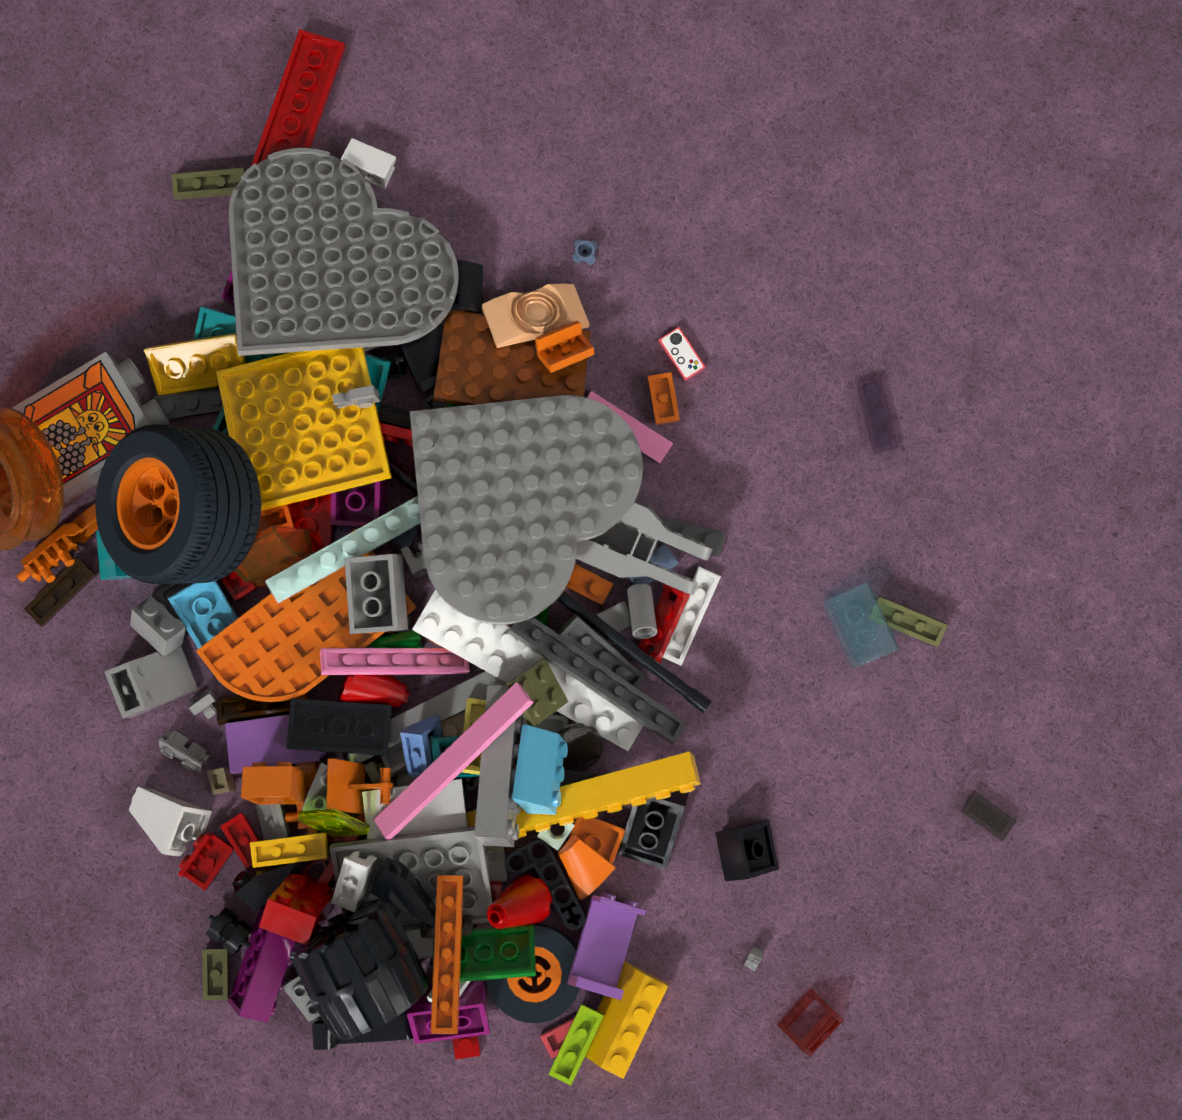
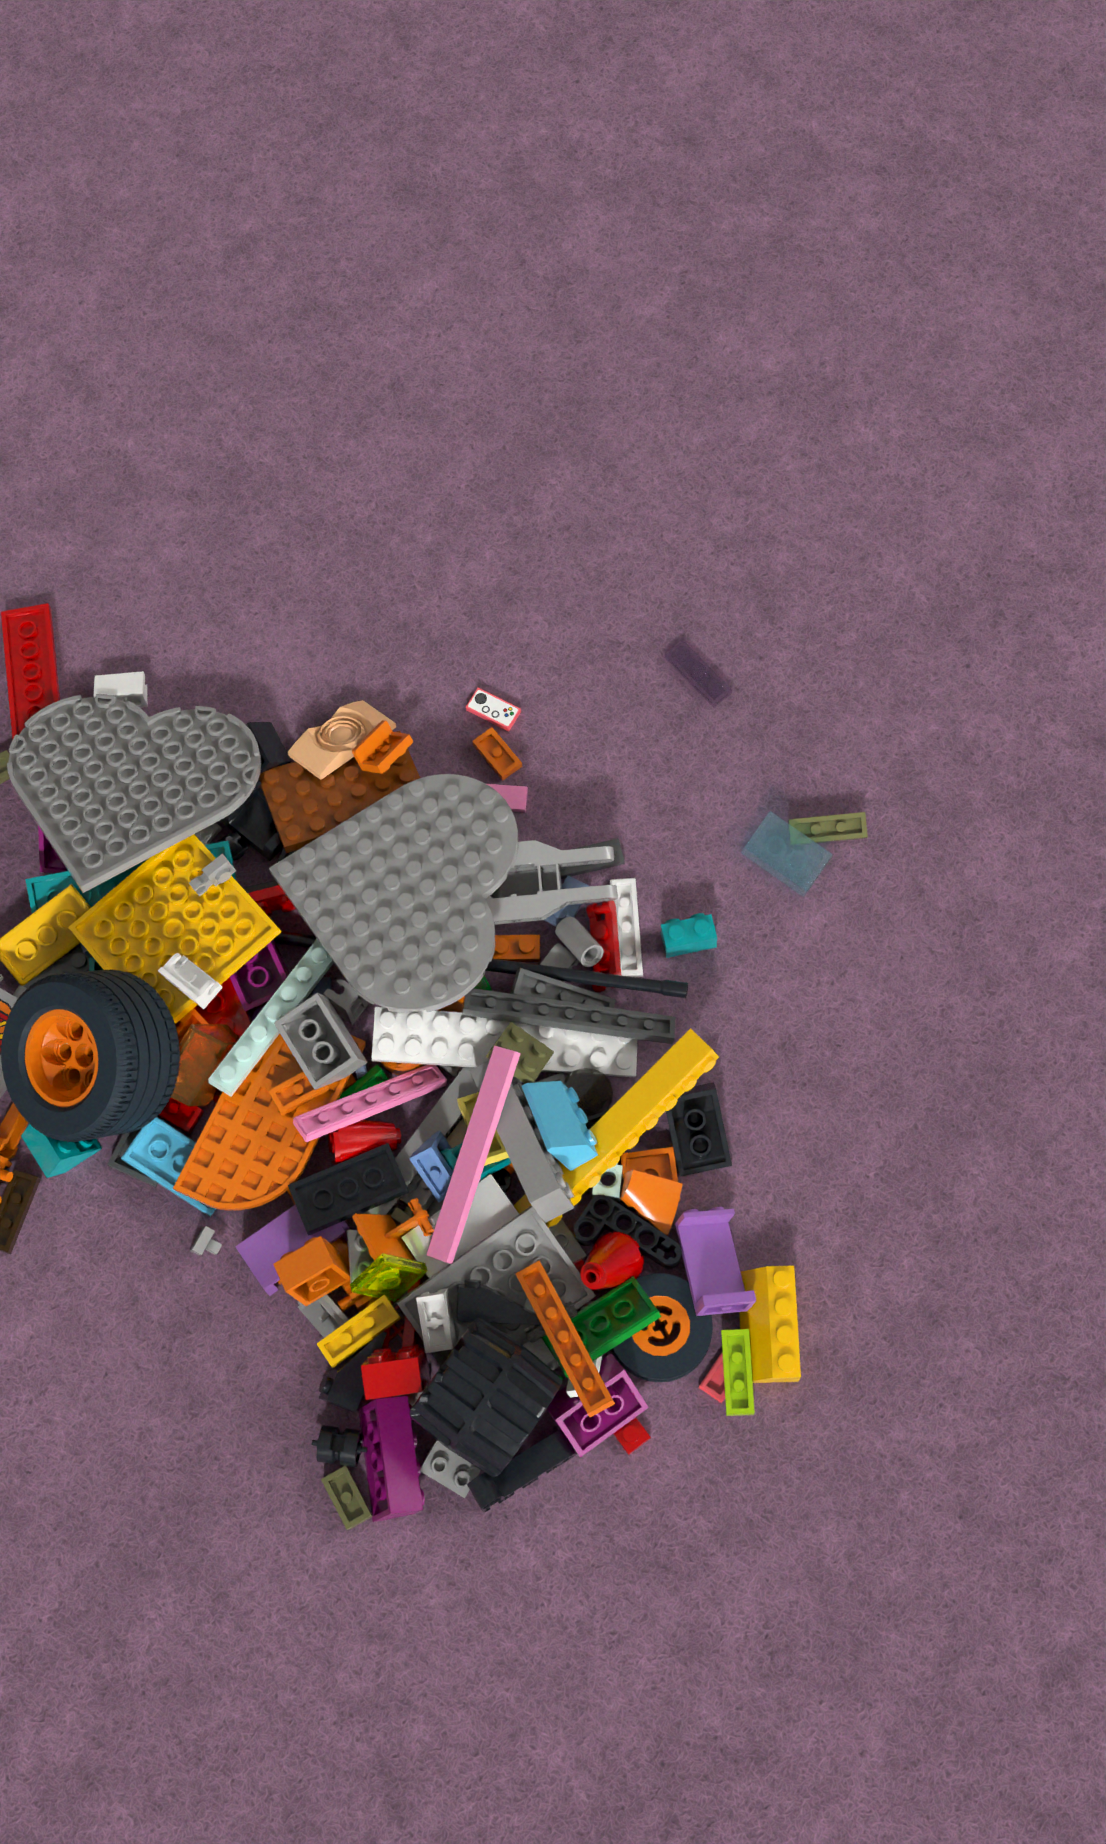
camera: 20 degrees left, 15 degrees down
(150, 682) = (143, 1247): light grey slope -> none
(157, 626) = (123, 1190): light grey brick -> none
(168, 820) = (225, 1366): white slope -> none
(175, 747) = (195, 1299): light grey hinge -> none
(206, 860) = (281, 1390): red bracket -> none
(221, 780) = (258, 1305): dark tan plate -> none
(240, 834) = (305, 1351): red plate -> none
(242, 709) = (252, 1221): dark brown plate -> none
(292, 483) = (190, 980): none -> white hinge
(331, 624) = (294, 1093): none -> orange plate
(586, 245) = (355, 662): sand blue plate -> none
(737, 654) = (688, 935): none -> teal brick
(747, 851) = (797, 1106): black slope -> none
(754, 958) = (861, 1202): light grey axle -> none
(819, 1032) = (963, 1236): clear red tile -> none
(988, 816) = (1002, 961): clear smoke tile -> none

